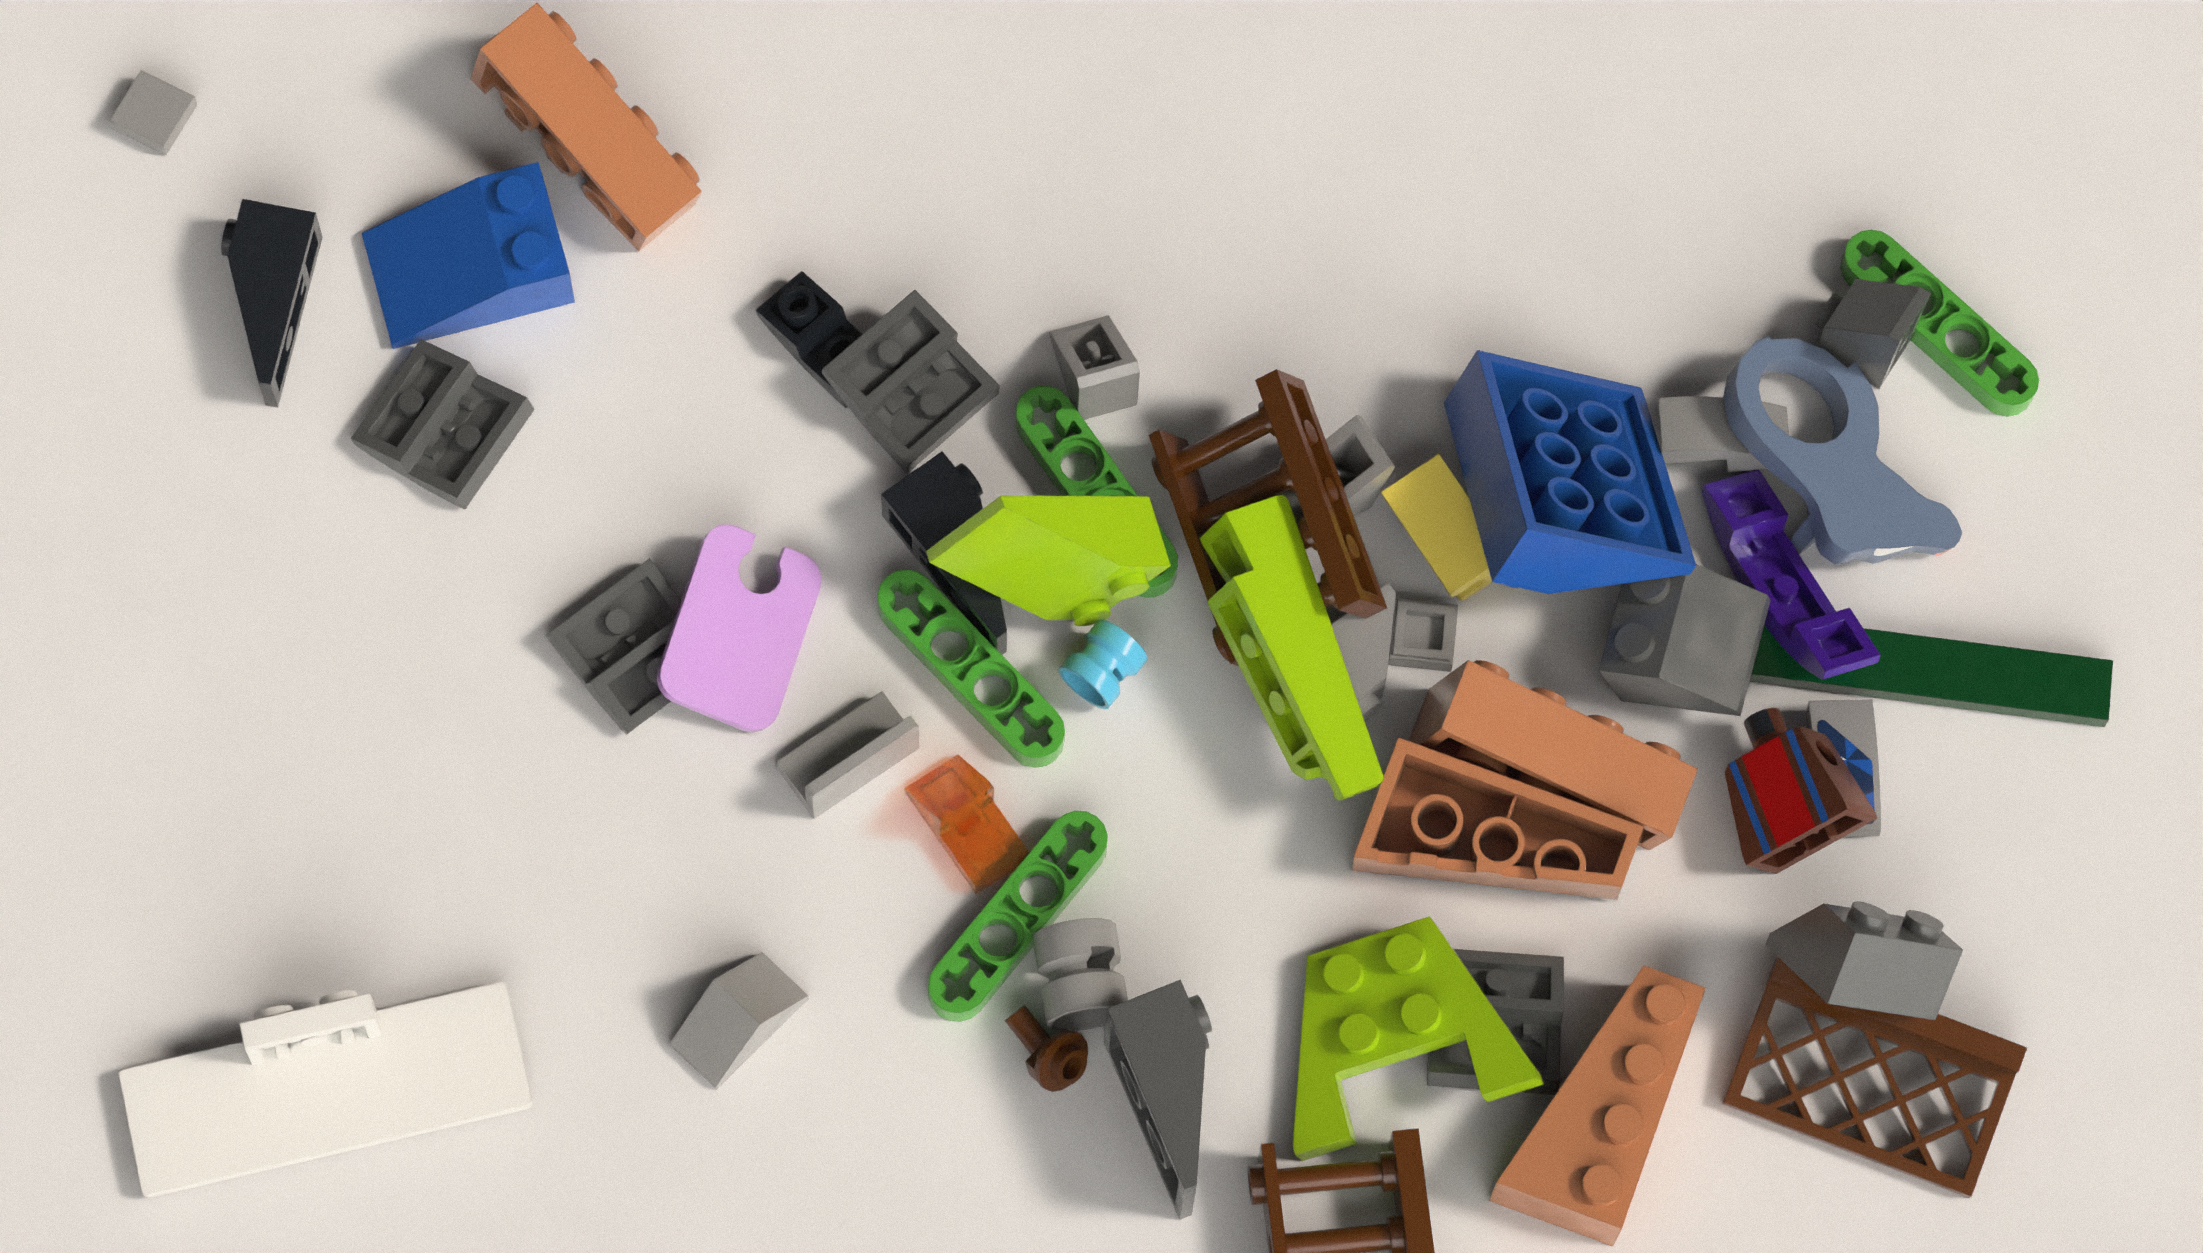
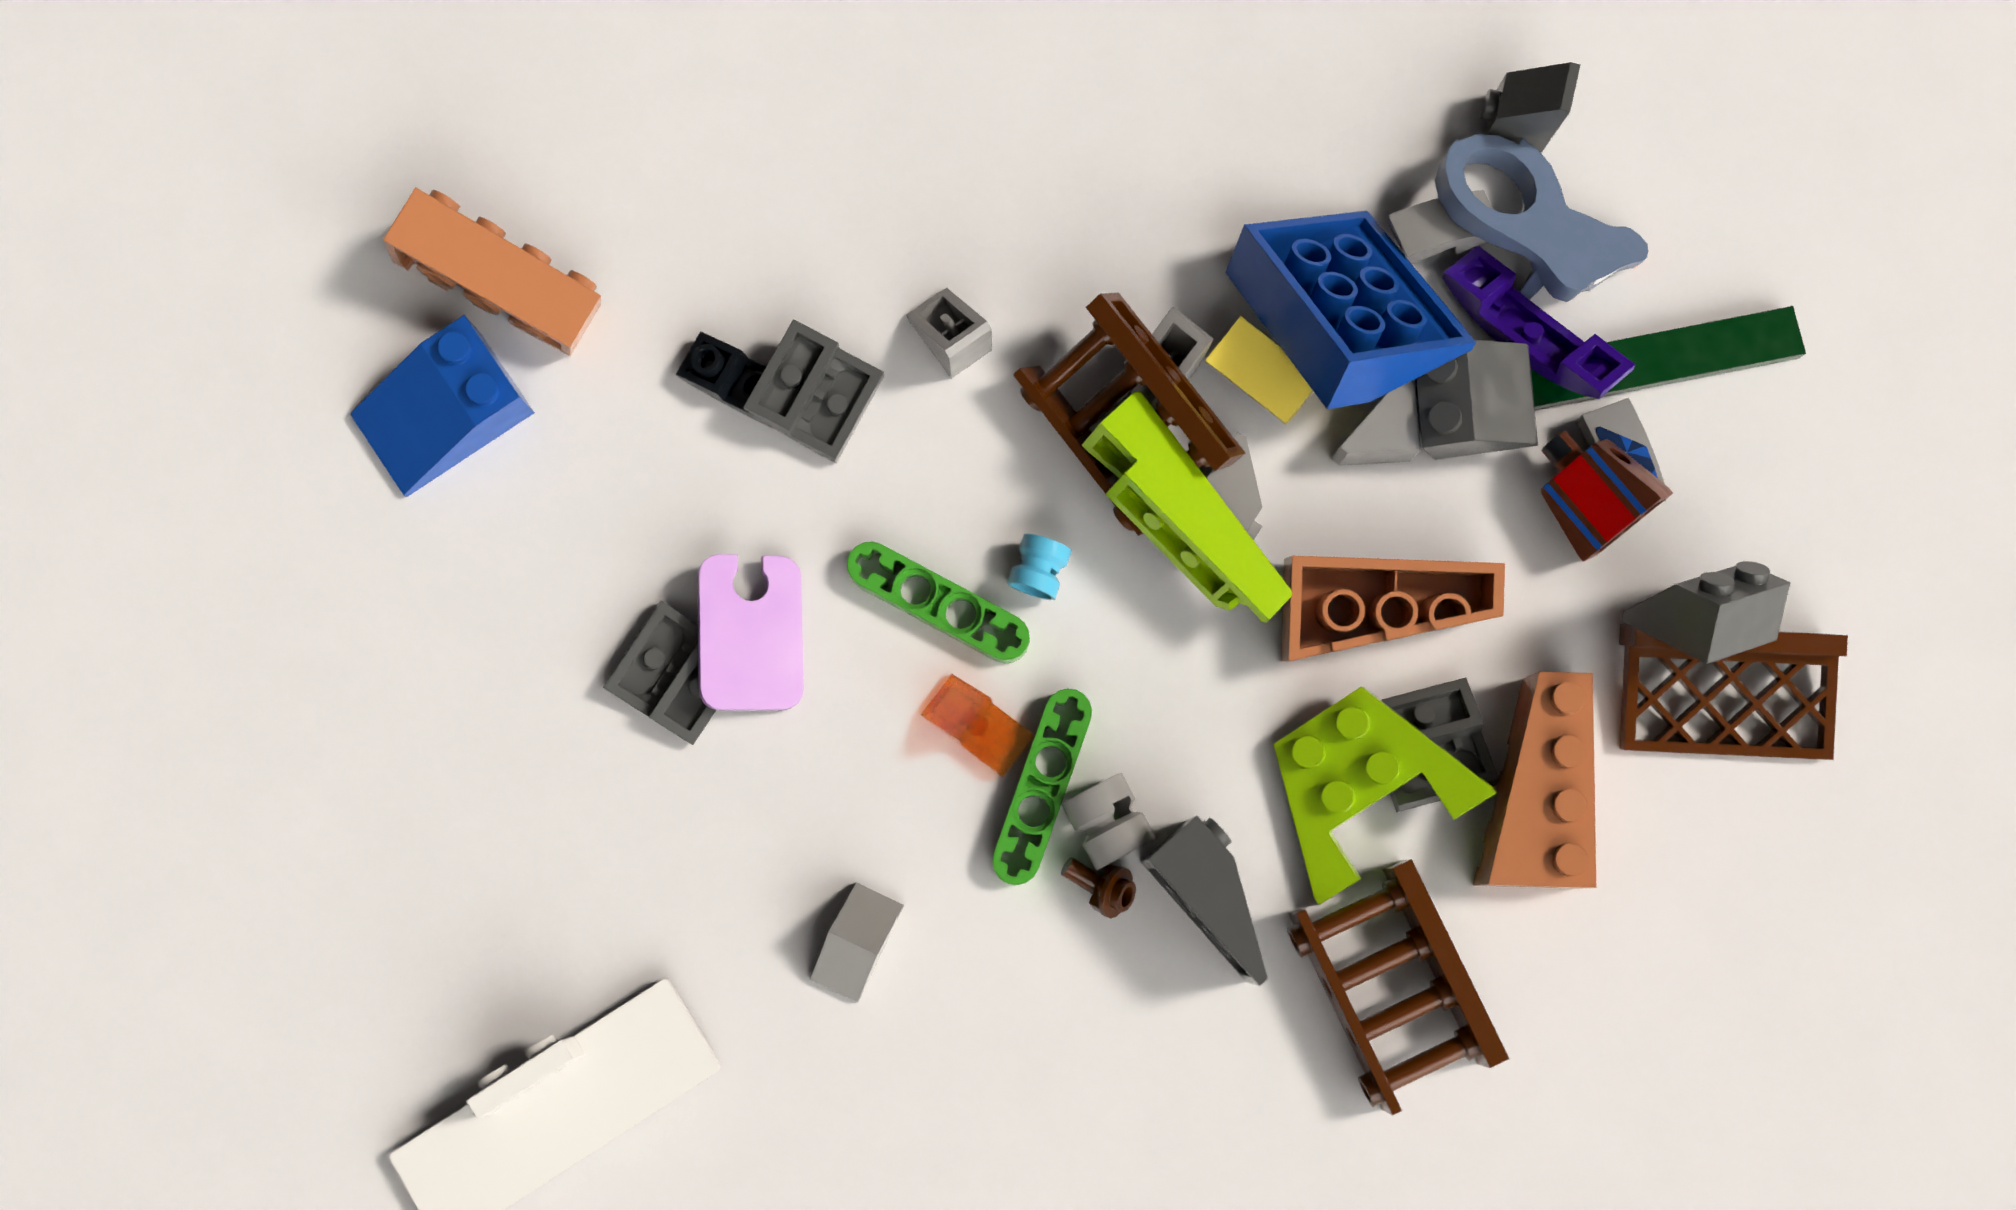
camera: 15 degrees left, 10 degrees up
(153, 112) = (153, 371): light grey tile -> none
(272, 267) = (288, 472): black slope -> none
(442, 424) = (464, 545): dark grey slope -> none
(849, 754) = (868, 702): light grey panel -> none
(926, 510) = (883, 501): black slope -> none
(1058, 553) = (981, 496): lime slope -> none
(1107, 478) = (990, 424): bright green beam -> none
(1423, 634) = (1274, 458): light grey tile -> none
(1547, 745) = (1404, 521): nougat wedge -> none
(1563, 644) = (1387, 432): none -> light grey slope
(1947, 315) = (1614, 88): bright green beam -> none

